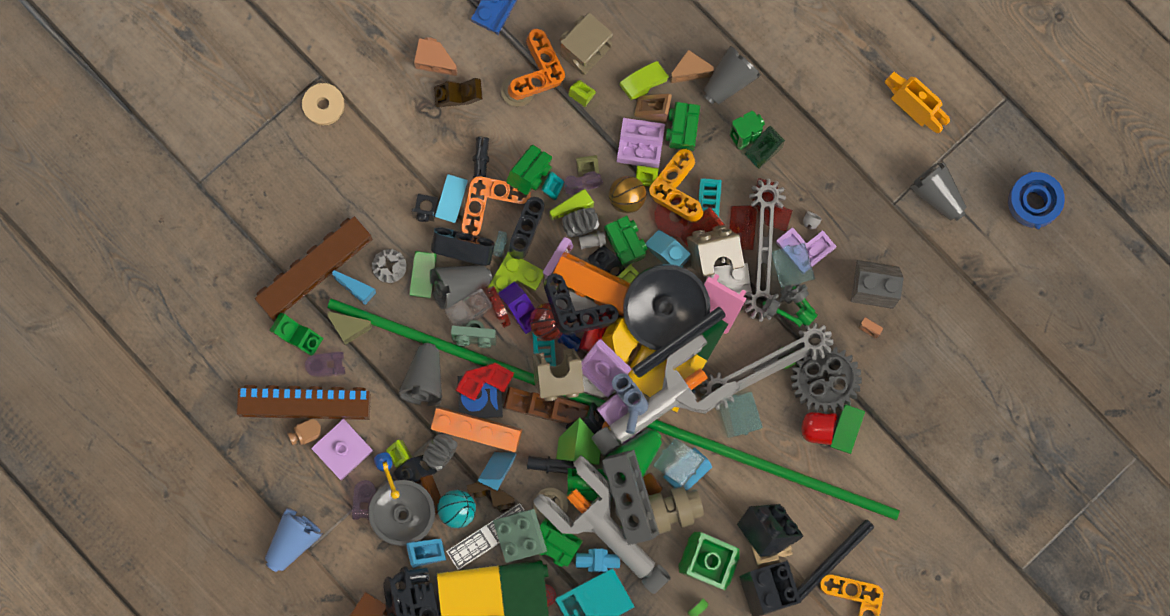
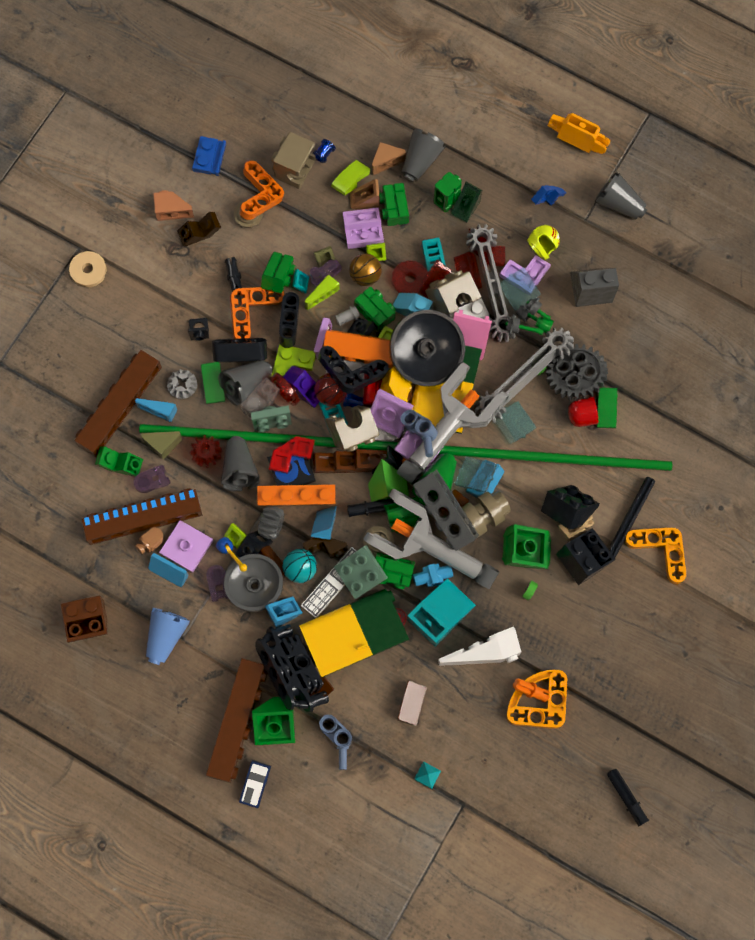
camera: 15 degrees left, 5 degrees down
(211, 499) = (84, 618): none -> reddish brown slope
(314, 470) = (168, 570): none -> dark azure slope
(385, 348) = (211, 445): none -> clear red gear
(451, 198) = (218, 314): medium azure slope -> none
(500, 244) = (271, 339): clear light blue tile -> none
(580, 222) = (333, 302): dark grey gear -> none
(581, 93) = (301, 202): lime slope -> none
(623, 40) = (324, 150): none -> clear blue bush
(669, 187) = (399, 254): light orange beam -> none
(679, 341) = (446, 372): black axle -> none
(811, 219) = (523, 249): light grey hinge -> none
(837, 217) = (544, 240): none -> neon yellow helmet
(861, 162) = (548, 194): none -> blue slope
(870, 328) = (599, 321): nougat tile -> none
(1047, 188) = (704, 171): blue piece -> none

